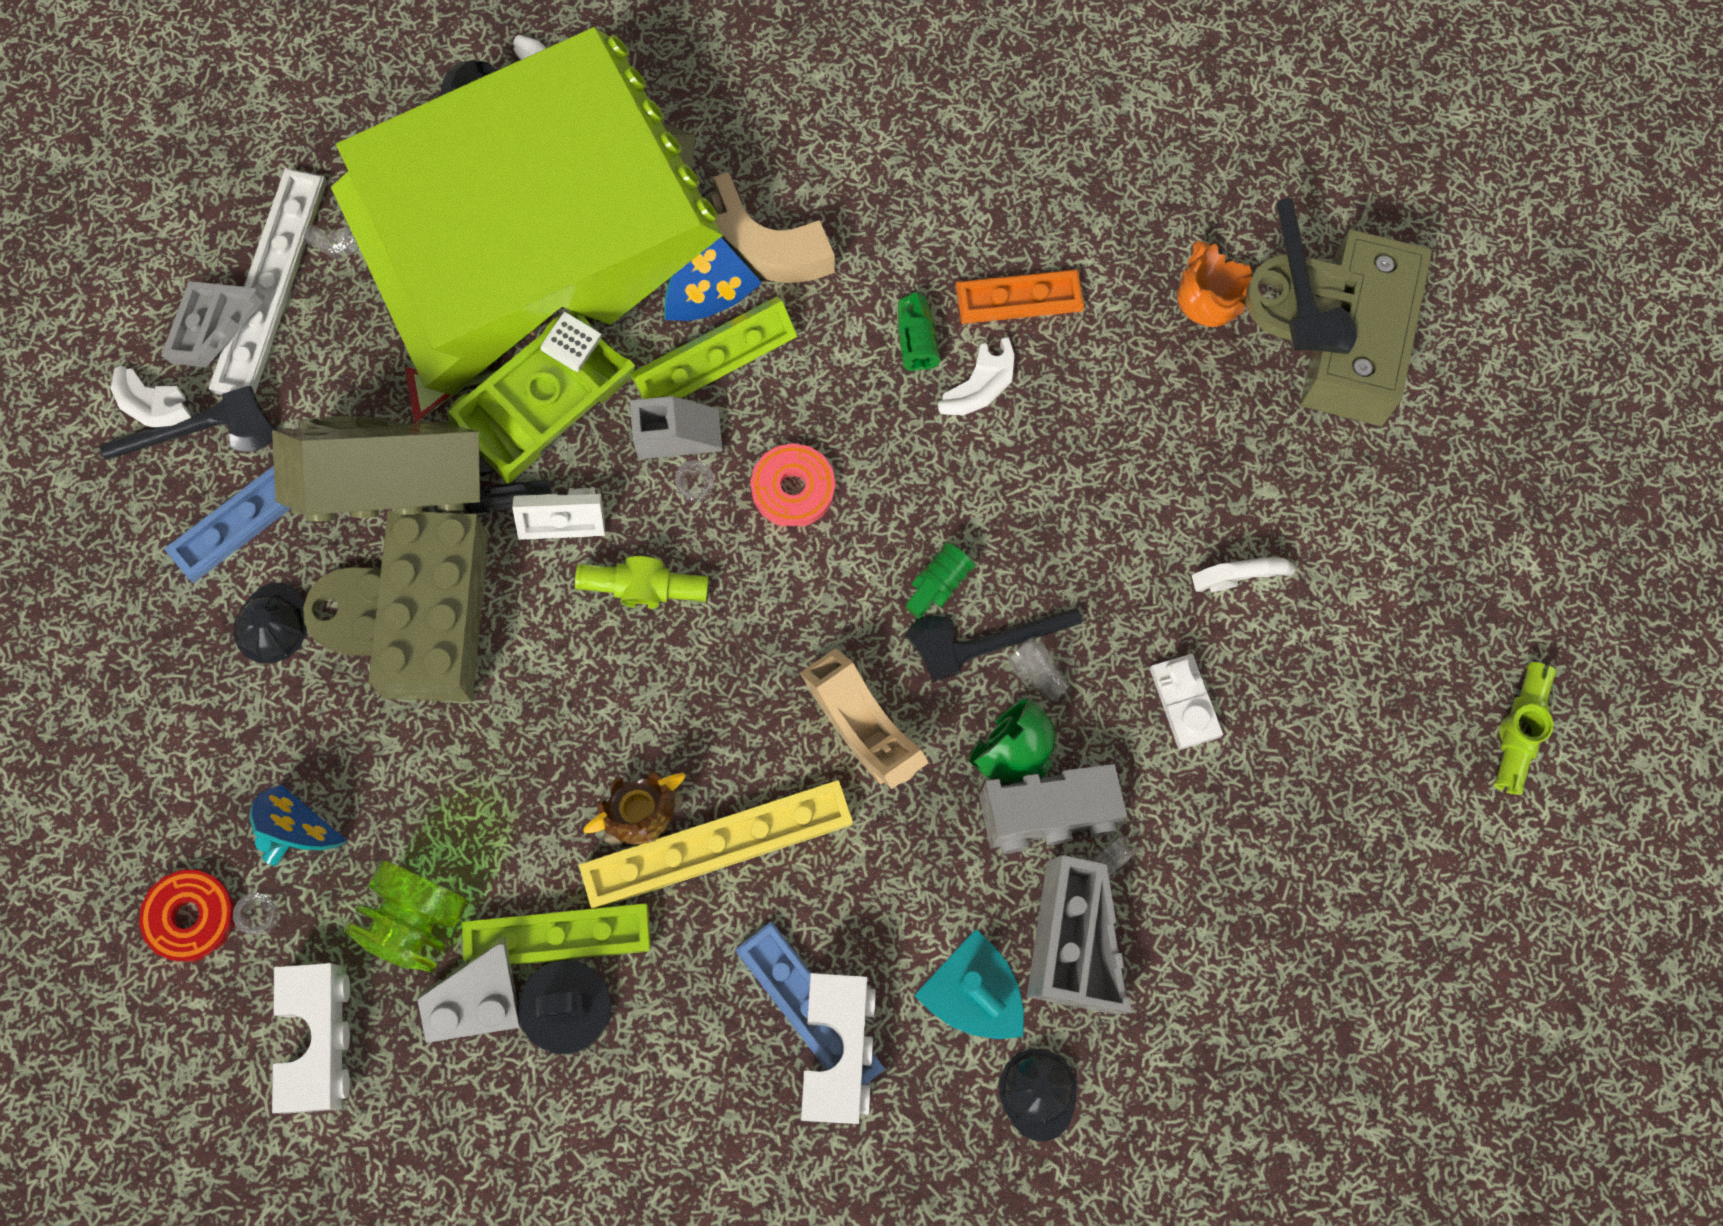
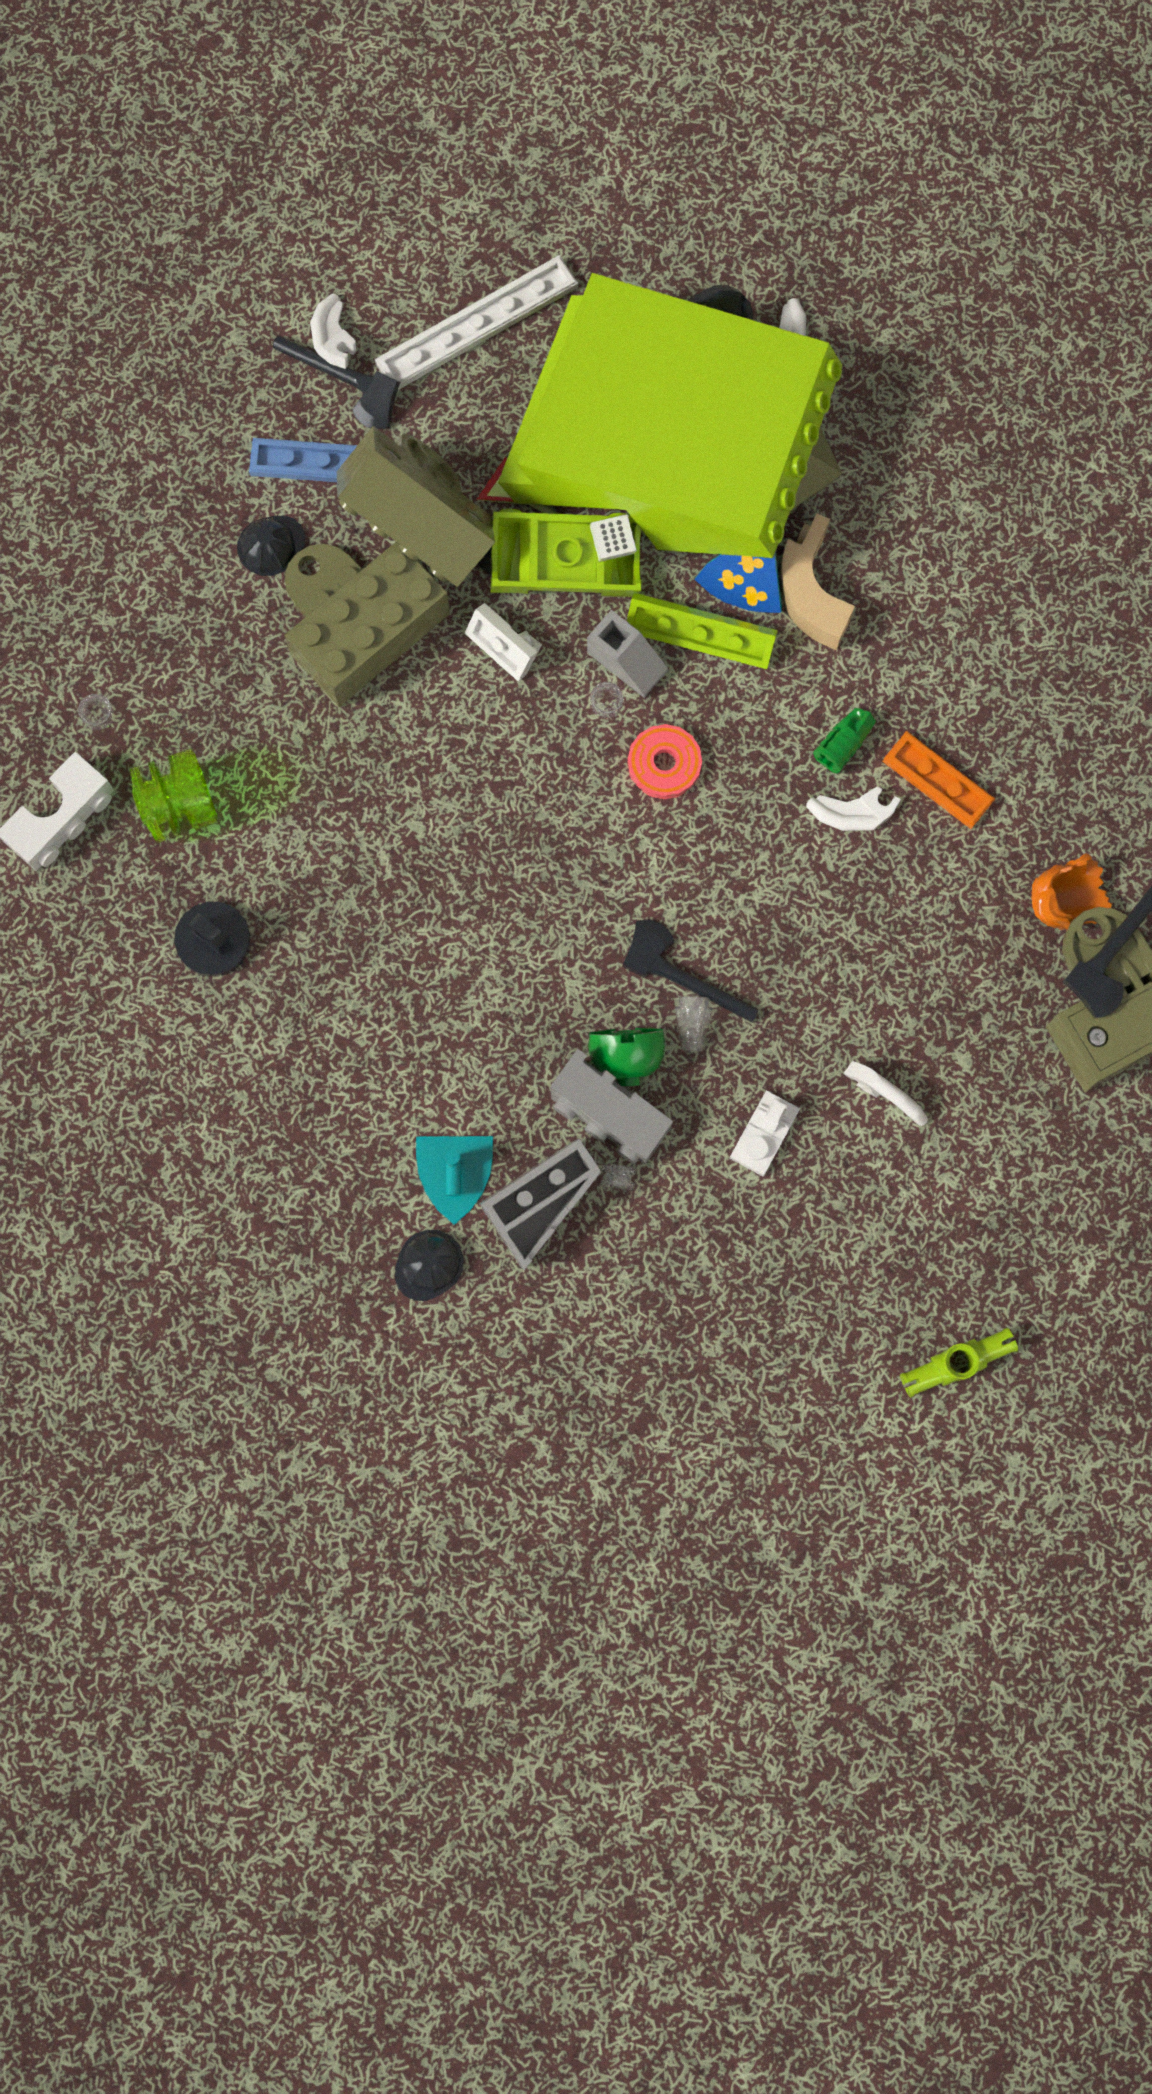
camera: 50 degrees right, 5 degrees up
(160, 910) = (52, 654): red tile -> none
(208, 321) = (414, 315): light grey wing -> none
(287, 822) = (162, 672): blue shield -> none
(335, 244) = (540, 335): clear arm -> none
(473, 999) = (166, 880): light grey wing -> none
(501, 496) = (480, 594): black axle -> none
(562, 934) = (247, 893): lime plate -> none
(637, 809) = (365, 865): reddish brown hair -> none
(641, 582) = (509, 731): lime pin -> none
(715, 845) = (392, 933): light yellow plate -> none
(788, 985) = (347, 1082): medium blue tile -> none
(841, 1005) = (313, 1141): white arch -> none
(861, 721) = (551, 943): tan arch -> none
(939, 579) = (690, 908): green hinge -> none

